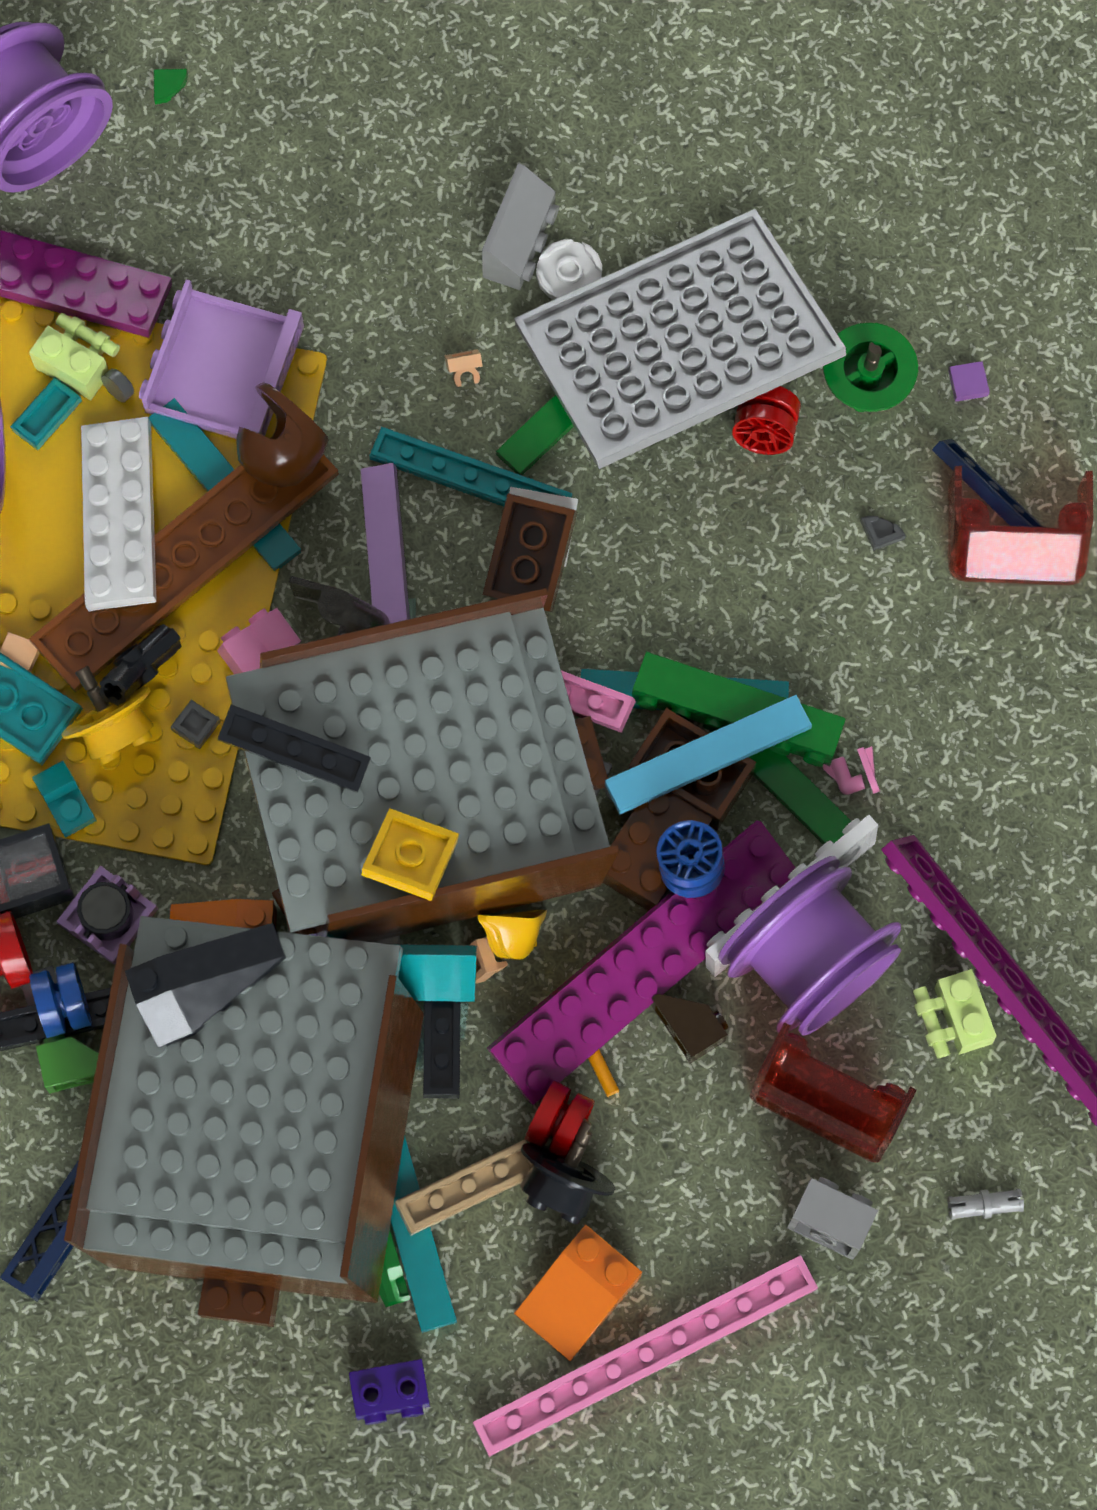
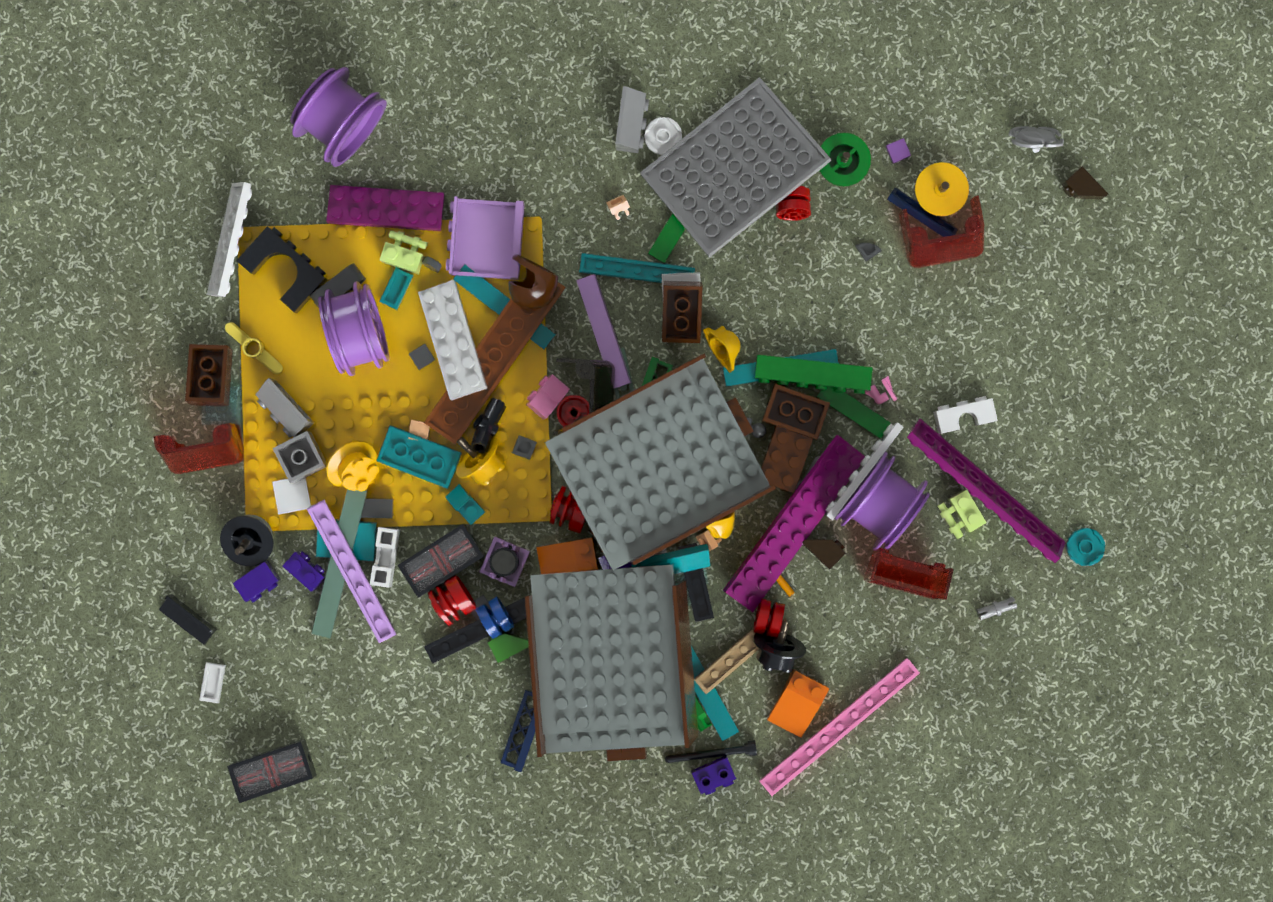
camera: 10 degrees left, 15 degrees up
(58, 534) = (422, 356): none -> dark grey tile
(168, 83) = (411, 73): green tile -> none
(193, 984) = (570, 609): black wedge -> none
(241, 842) = (566, 509): none -> red wheel
(294, 748) = (592, 476): black plate -> none
(410, 854) = (667, 518): yellow plate -> none
(466, 1357) = (748, 748): none -> black piece
(590, 630) = (724, 345): none -> yellow hat
(601, 703) = (736, 387): bright pink plate -> none
(695, 842) = (812, 459): blue wheel -> none
(707, 754) = (804, 405): medium azure tile -> none
(833, 1217) = (921, 638): light grey brick -> none
(1025, 840) = (948, 418): none -> white arch
(1030, 451) = (941, 189): none -> yellow piece

